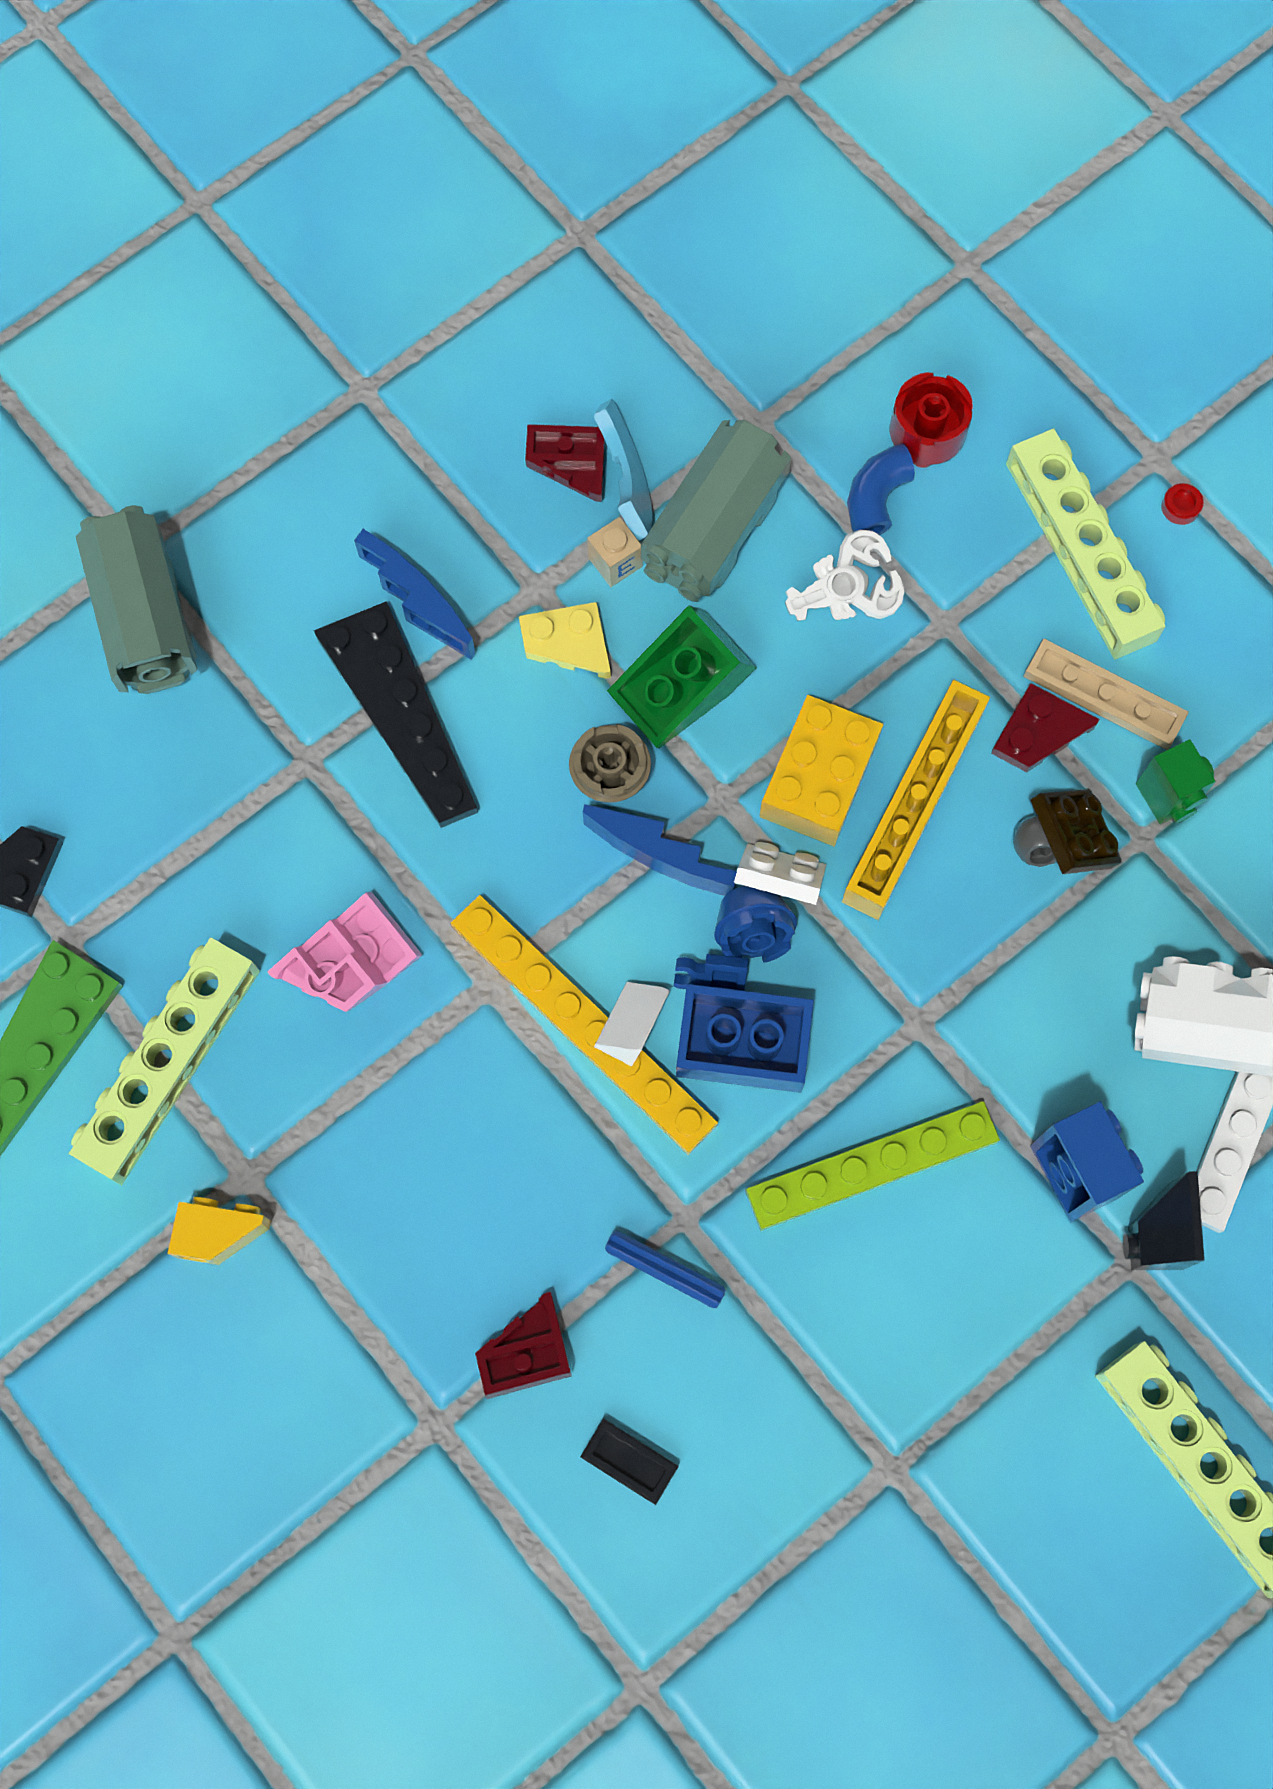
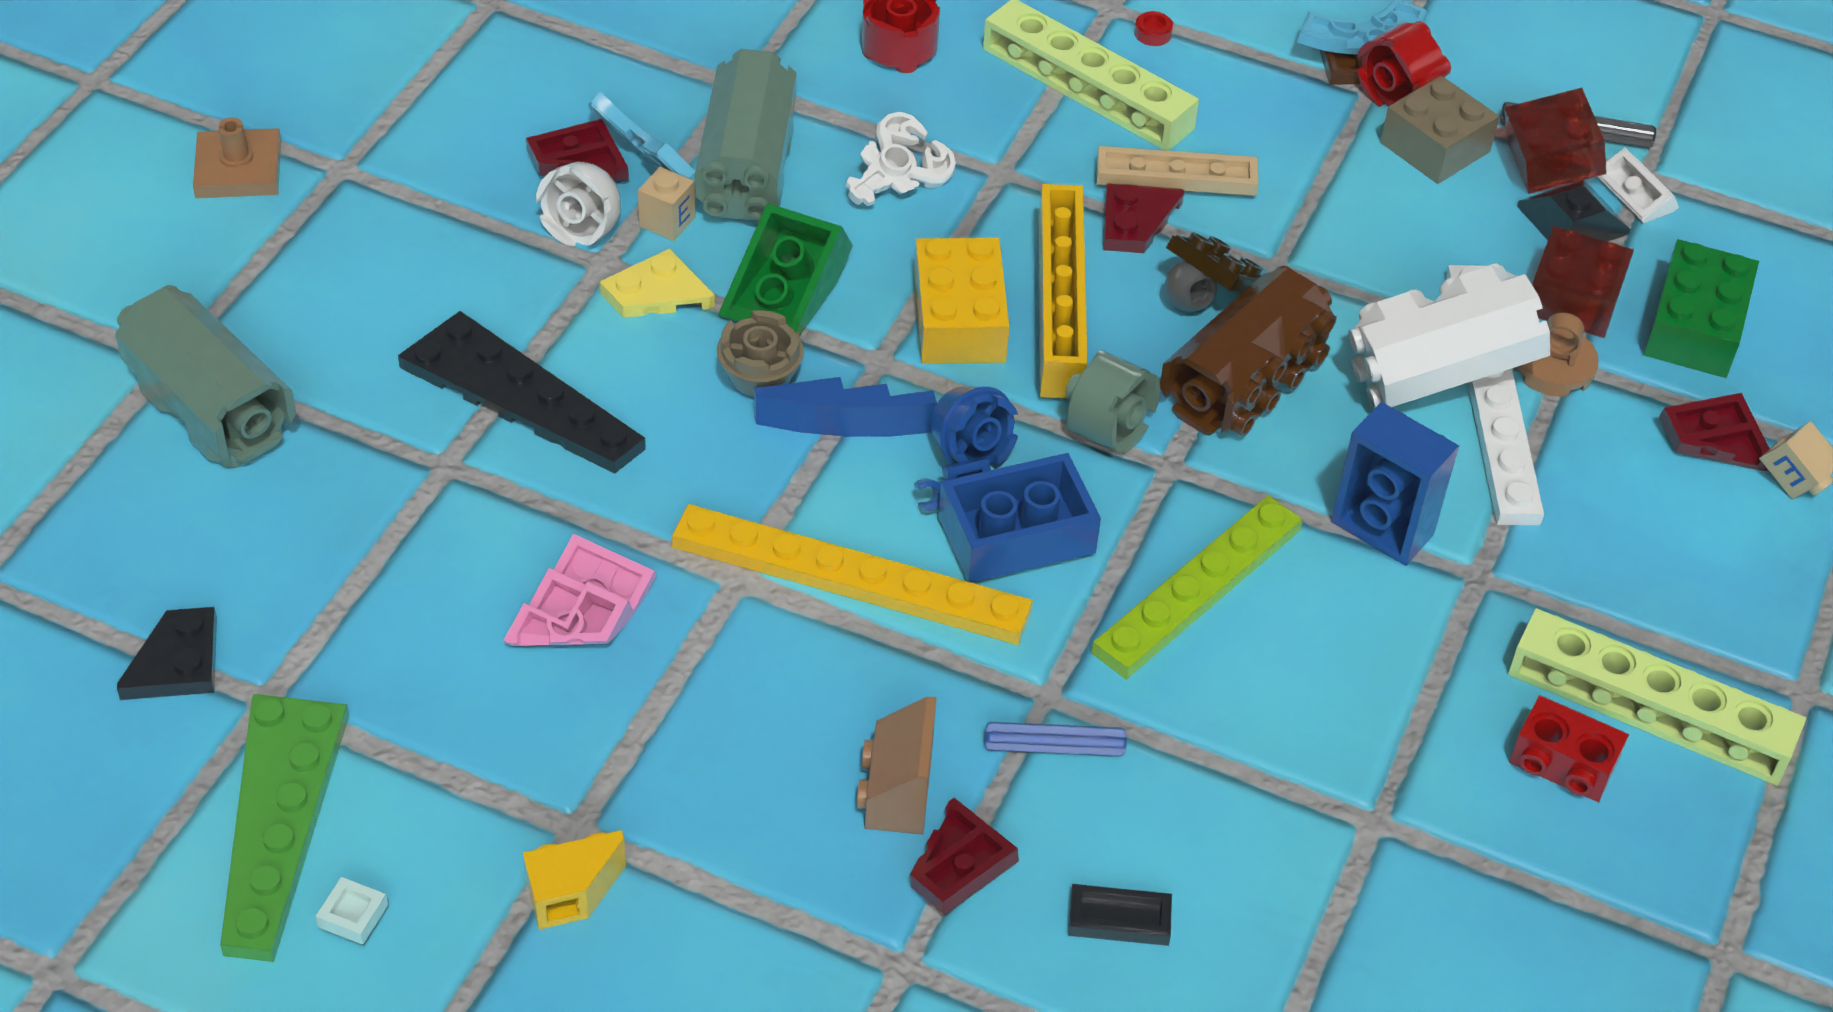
camera: 30 degrees left, 25 degrees down
(40, 1183) = (351, 910): none -> light aqua plate
(164, 1084) = (444, 719): yellowish green brick -> none
(275, 351) = (237, 161): none -> medium nougat tile
(422, 602) = (502, 298): blue slope -> none
(513, 1252) = (899, 769): none -> medium nougat slope
(537, 524) = (578, 203): none -> white cylinder
(631, 1021) = (903, 544): white slope -> none
(781, 873) = (995, 372): white plate -> none
(873, 485) = (879, 83): blue cylinder -> none
(890, 949) = (1111, 402): none -> sand green brick
(1048, 945) = (1250, 347): none -> reddish brown brick
(1101, 1479) = (1568, 748): none -> red brick
(1168, 1229) = (1501, 519): black slope -> none
(1176, 782) = (1281, 201): green brick -> none

